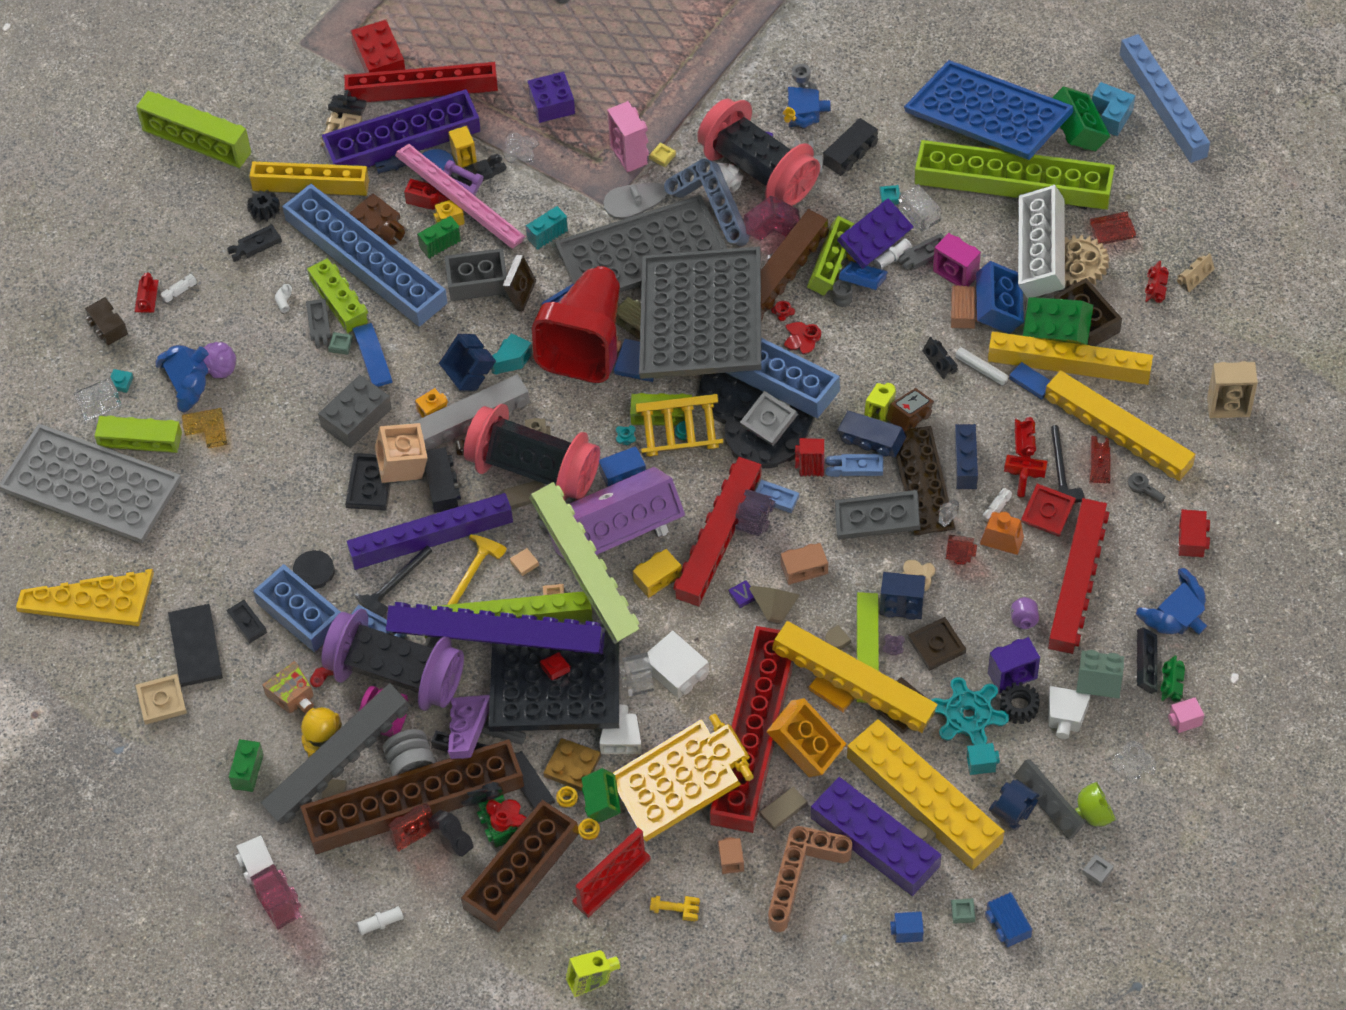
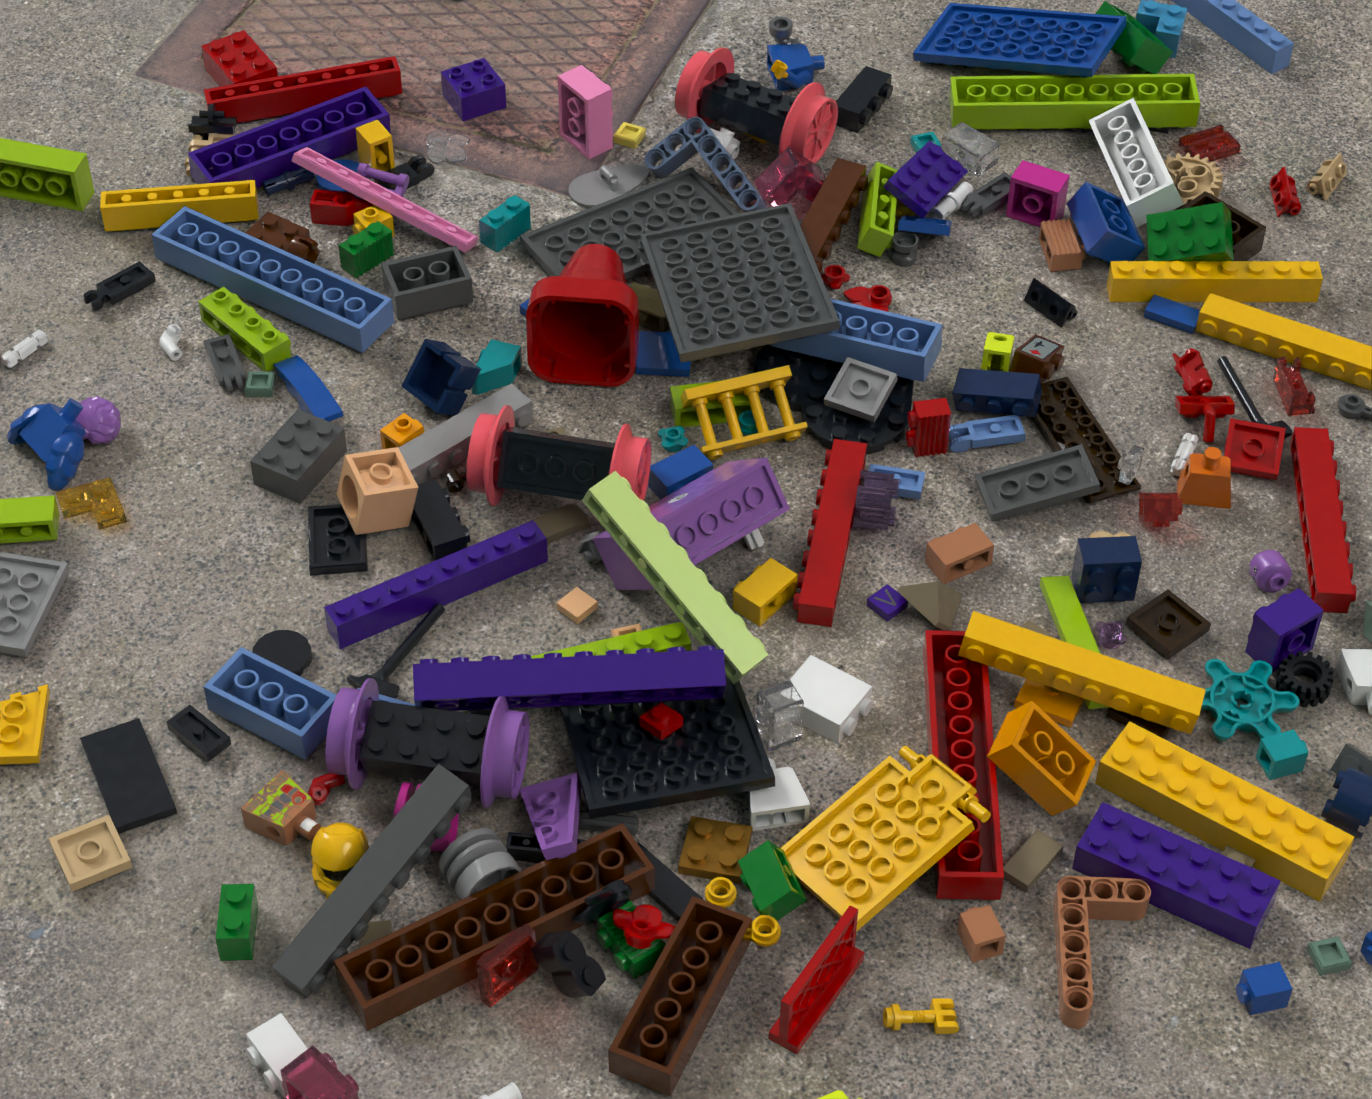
camera: 15 degrees left, 10 degrees down
(263, 205) = (123, 243): black gear -> none
(485, 546) = (518, 595): yellow piece -> none
(519, 282) = (486, 283): dark brown plate -> none
(966, 456) = (1126, 404): dark blue brick -> none
(981, 366) = (1106, 306): white axle -> none

